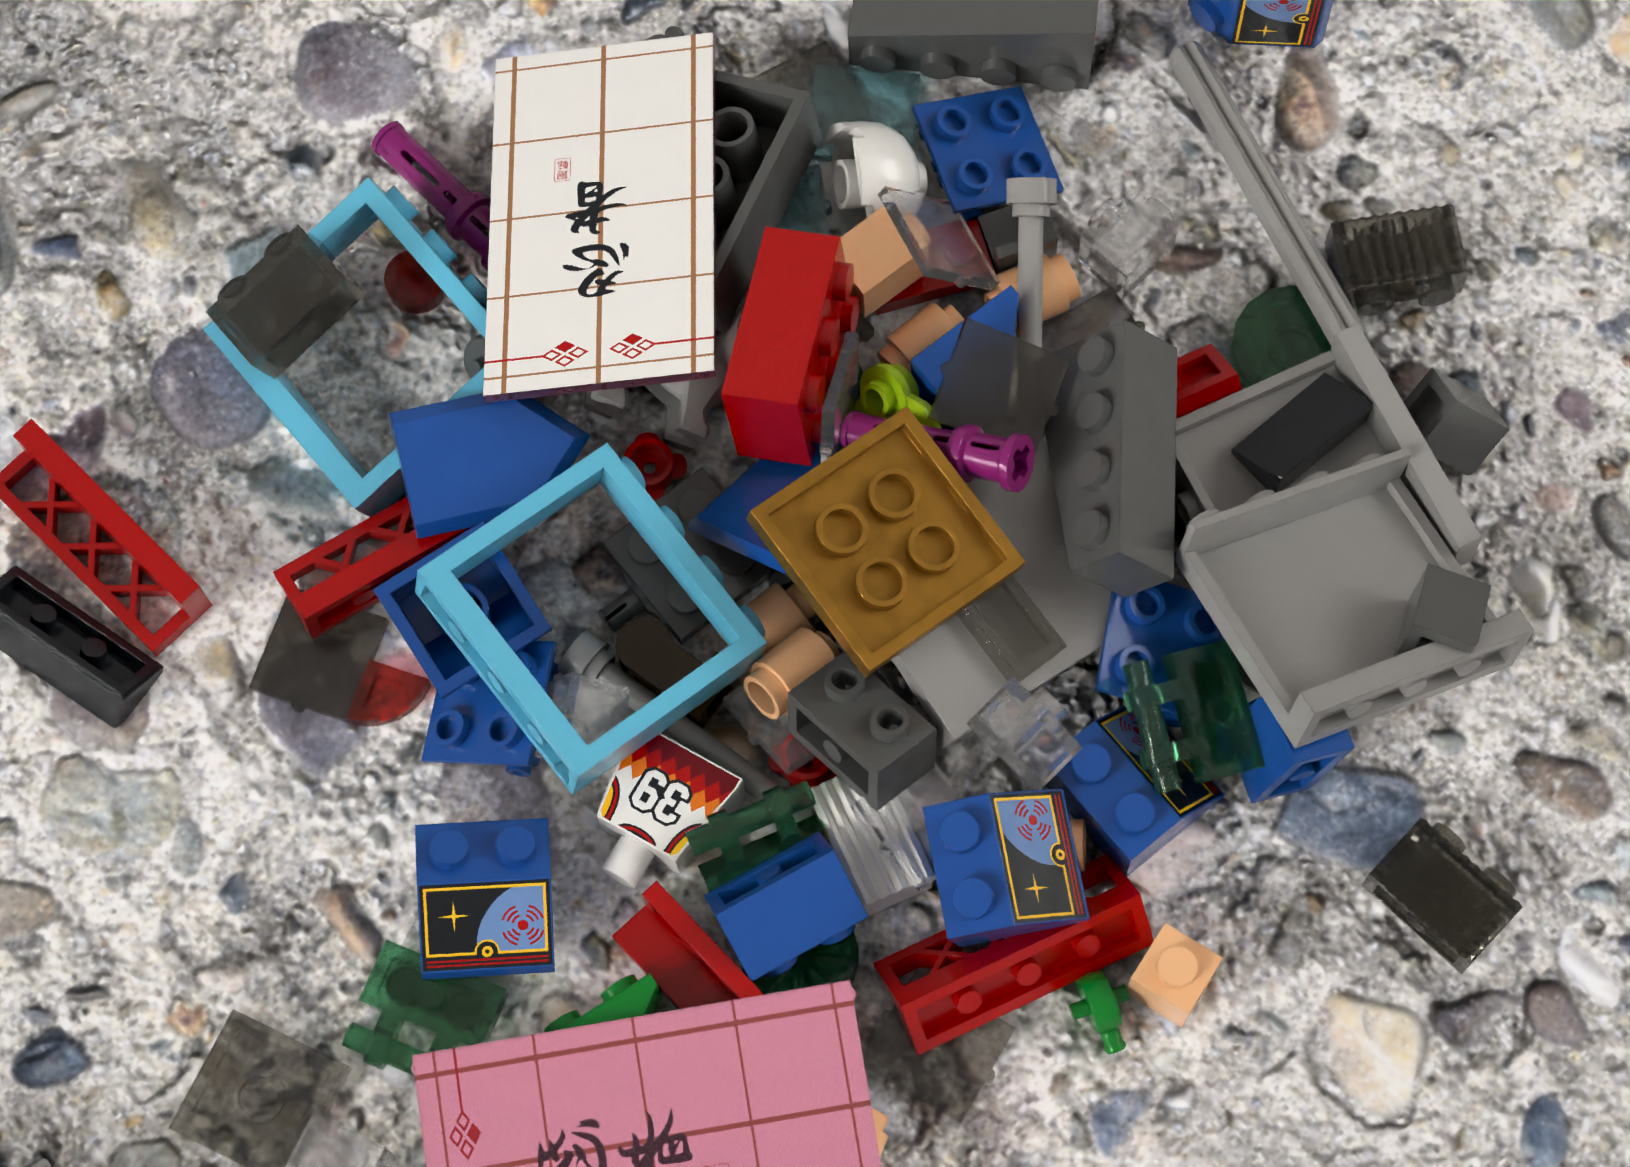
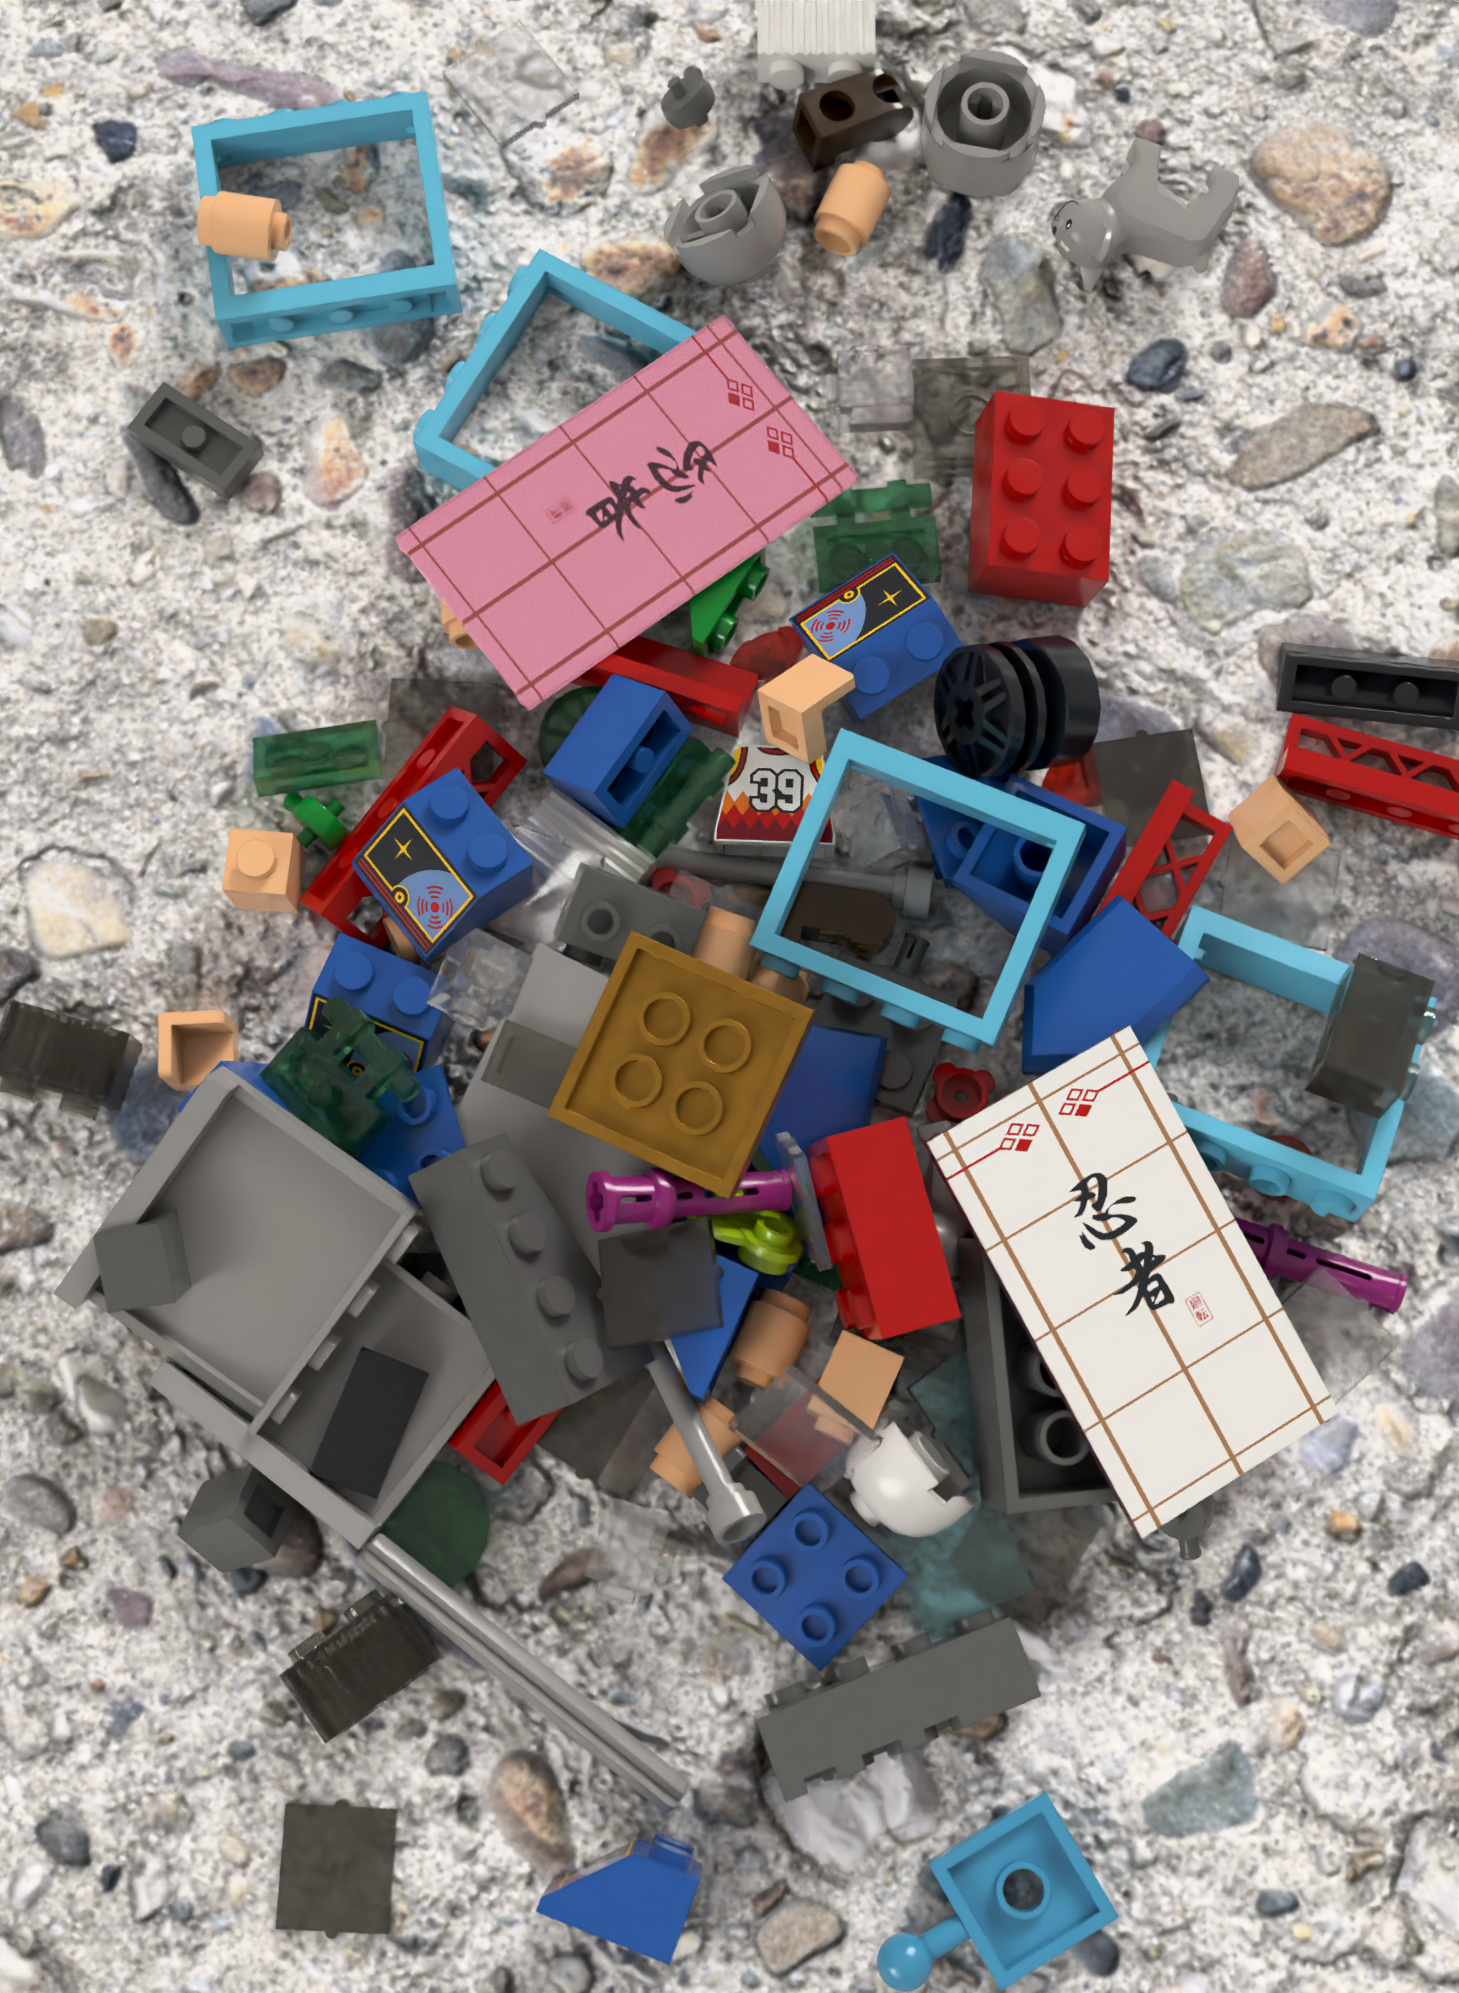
camera: 150 degrees right, 5 degrees up
(235, 549) = (1278, 829): none -> light nougat panel
(252, 956) = (1041, 499): none -> red brick
(266, 508) = (1292, 911): none -> clear piece
(401, 752) = (1016, 706): none -> black wheel
(457, 127) = (1337, 1332): none -> clear piece
(589, 955) = (769, 653): none -> clear red tile
(590, 849) = (795, 704): none -> light nougat panel
(1071, 1066) = (317, 758): none -> clear green plate
(1310, 841) = (193, 1045): none -> light nougat panel
(1485, 132) = (337, 1868): none -> clear smoke piece

